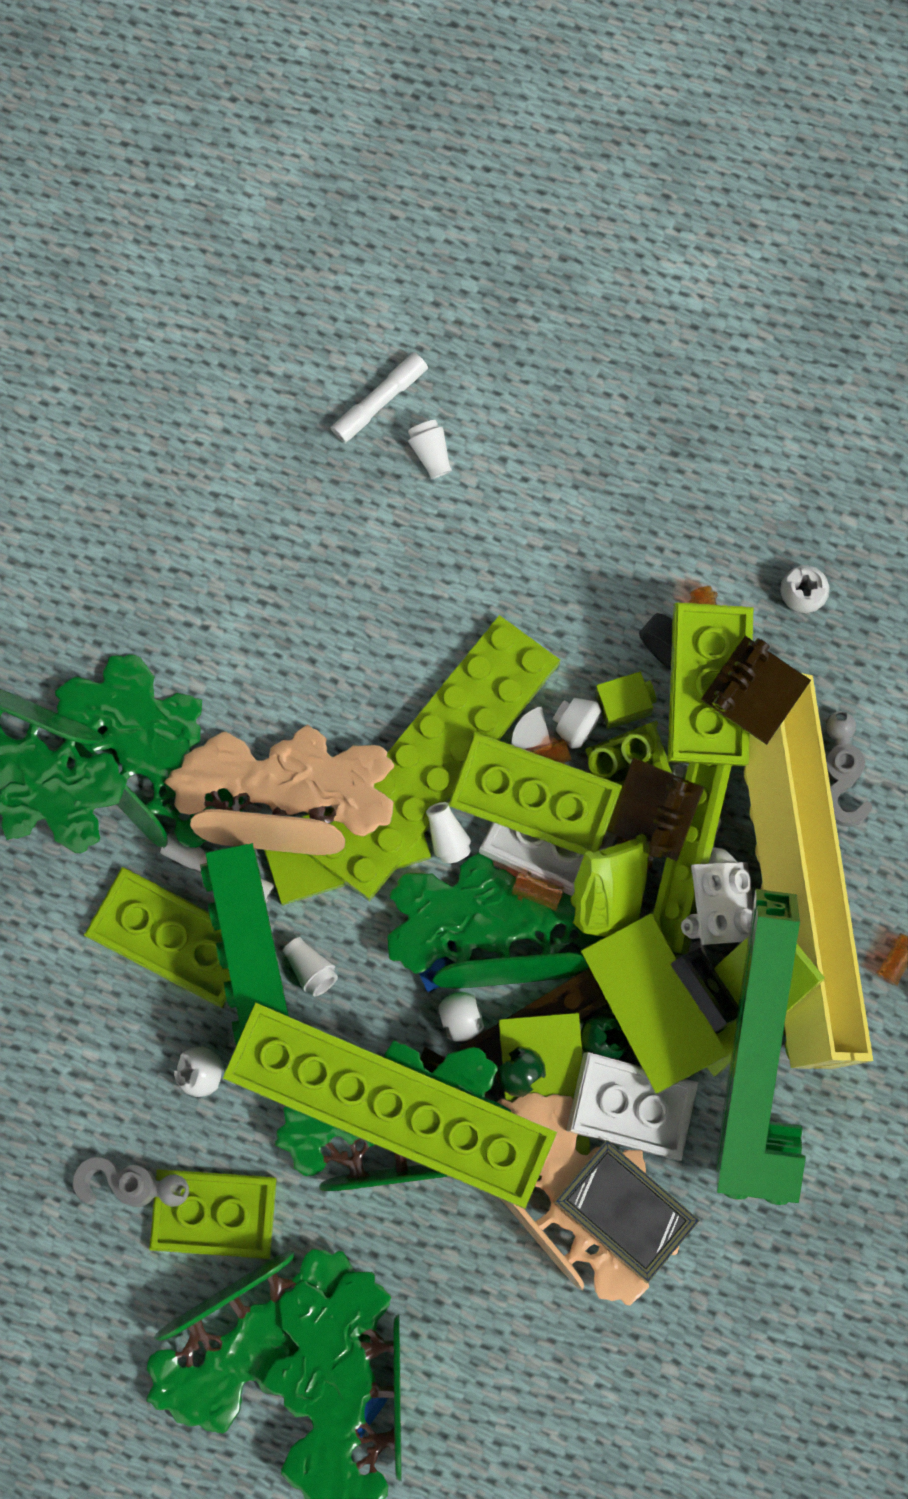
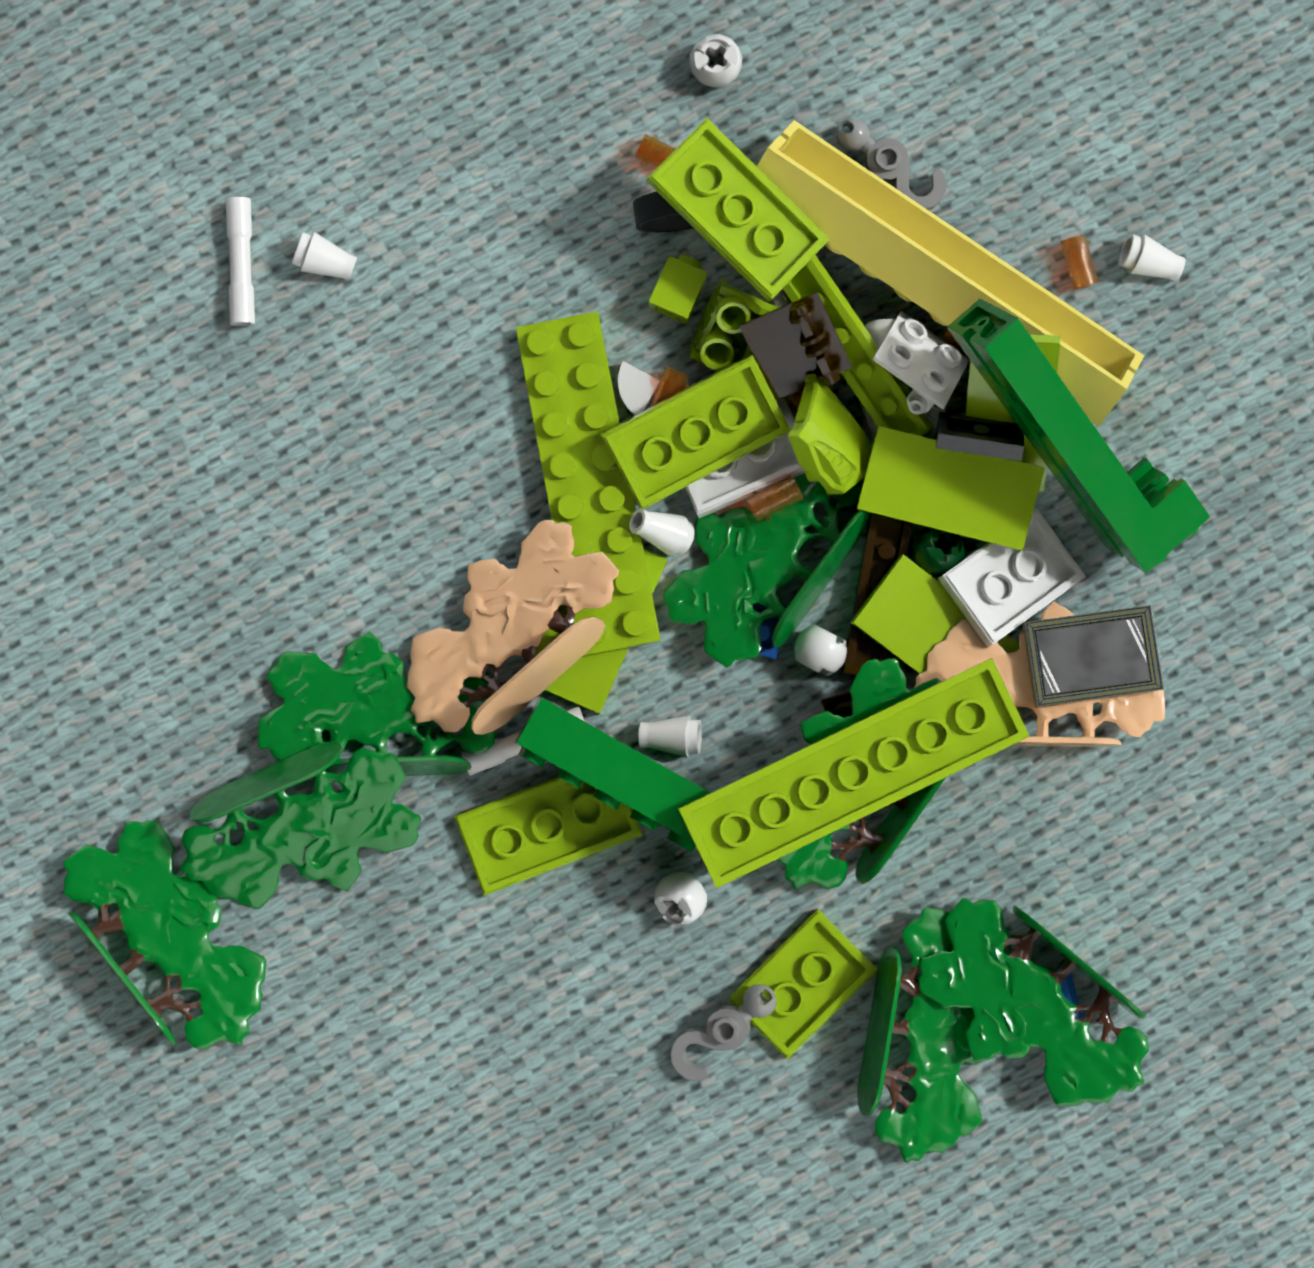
camera: 50 degrees left, 10 degrees up
(520, 1071) = (912, 642): dark green piece -> none
(577, 720) = (661, 343): white cone -> none
(755, 689) = (777, 177): dark brown hinge -> none

